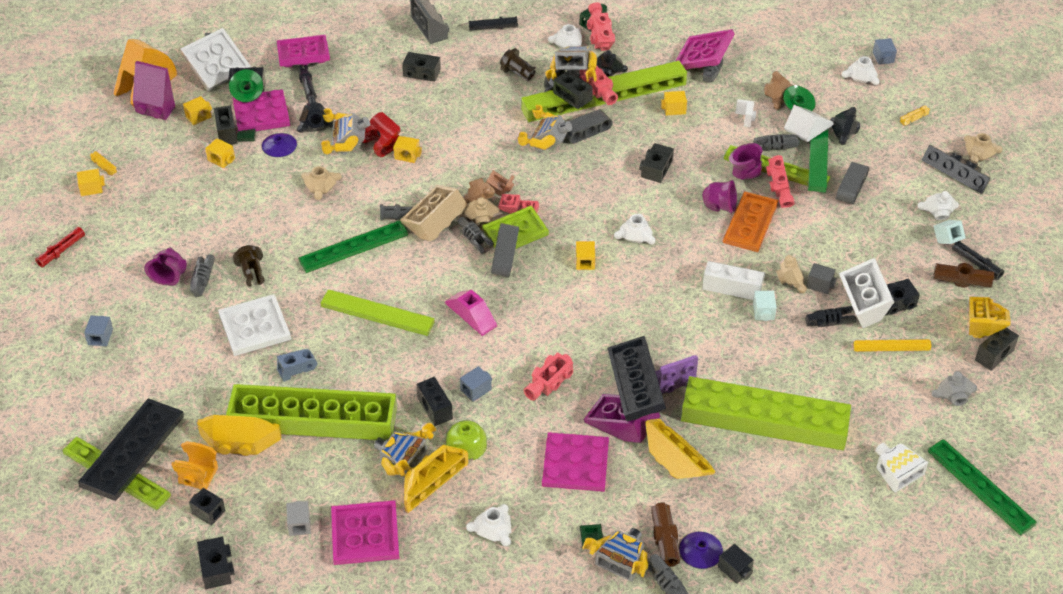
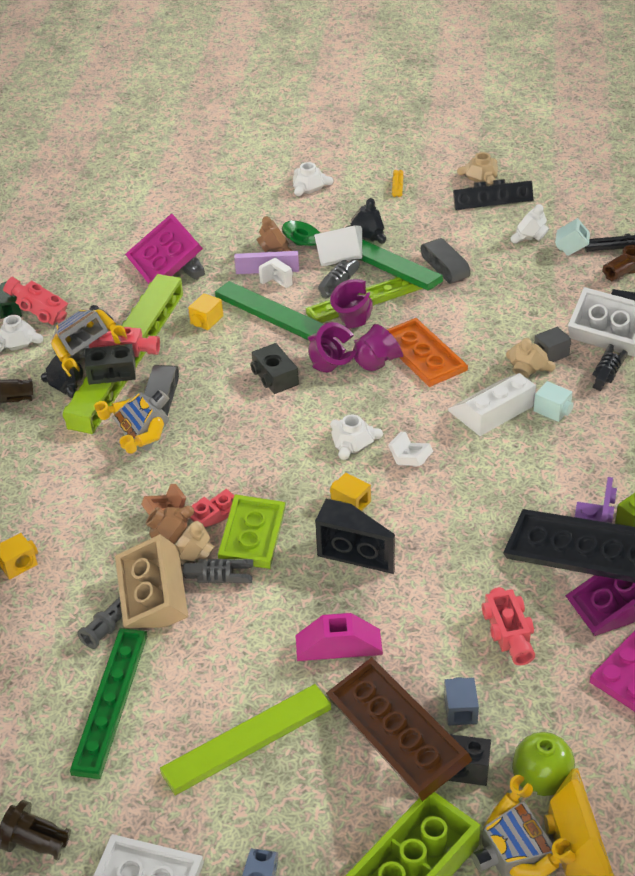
camera: 50 degrees left, 5 degrees down
(424, 361) = (399, 728): none -> reddish brown plate
(504, 250) = (280, 554): dark grey beam -> none
(544, 269) = (353, 537): none -> black slope
(648, 260) = (409, 453): none -> white bracket
(695, 173) = (326, 350): none -> magenta helmet
(711, 133) = (268, 310): none -> green tile
(762, 108) = (249, 262): none -> lavender tile
(780, 182) = (392, 299): coral brick -> none
(884, 51) = (299, 153): sand blue brick -> none

